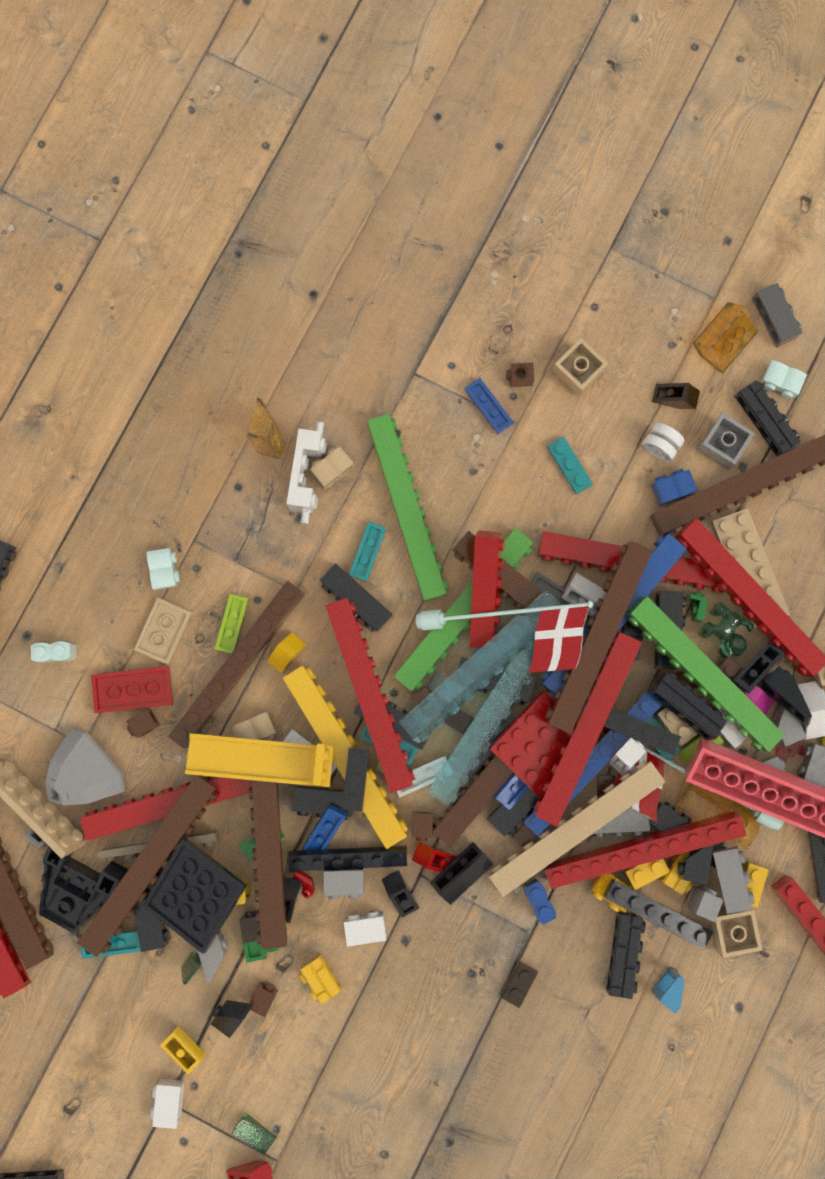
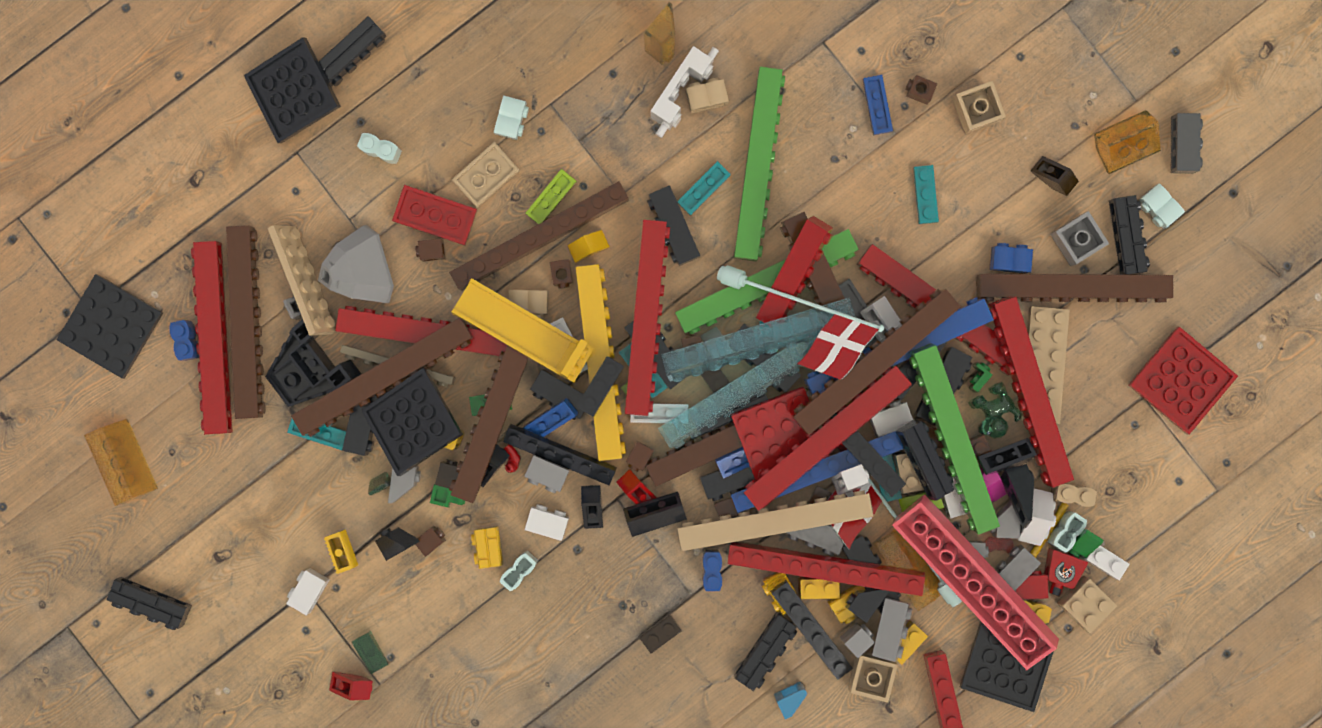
camera: 25 degrees right, 5 degrees up
(265, 684) = (559, 265): none -> reddish brown brick
(358, 990) = (515, 574): none -> light aqua brick
(637, 682) = (891, 418): none -> white brick
(663, 442) = (1021, 213): white wheel -> none

